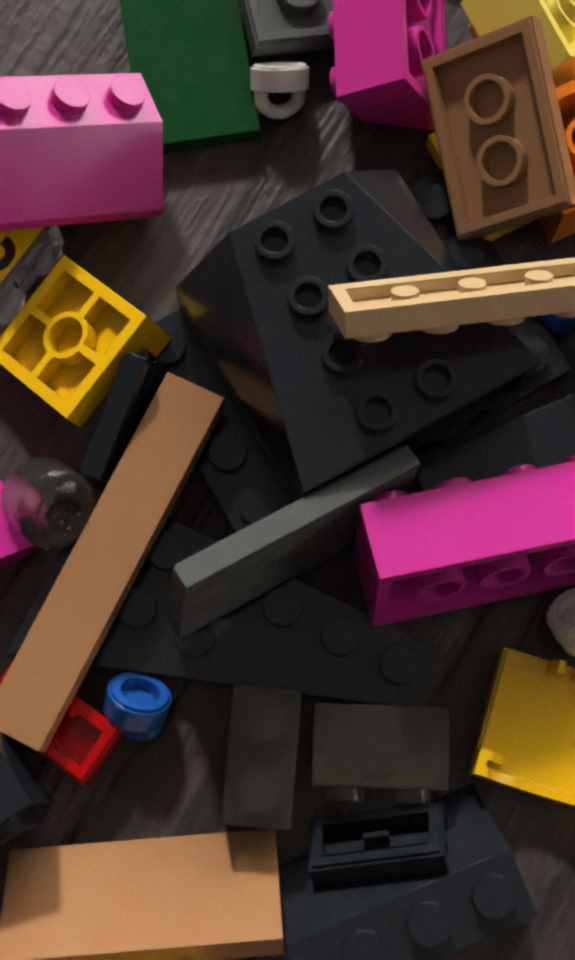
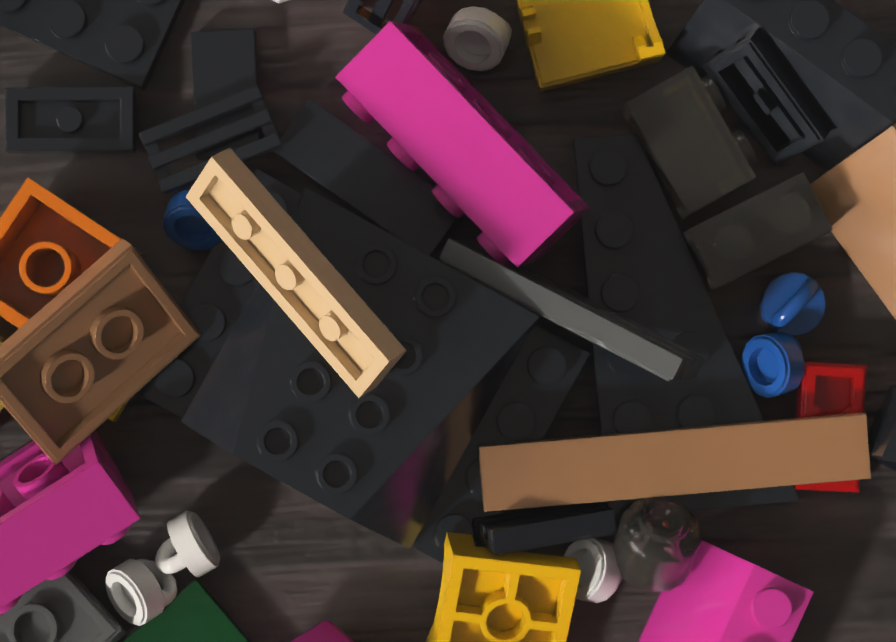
camera: 125 degrees left, 10 degrees up
(61, 439) = (598, 567): none -> white tile
(179, 756) = (792, 304): none -> blue tile
(289, 139) = (192, 543): none -> white tile

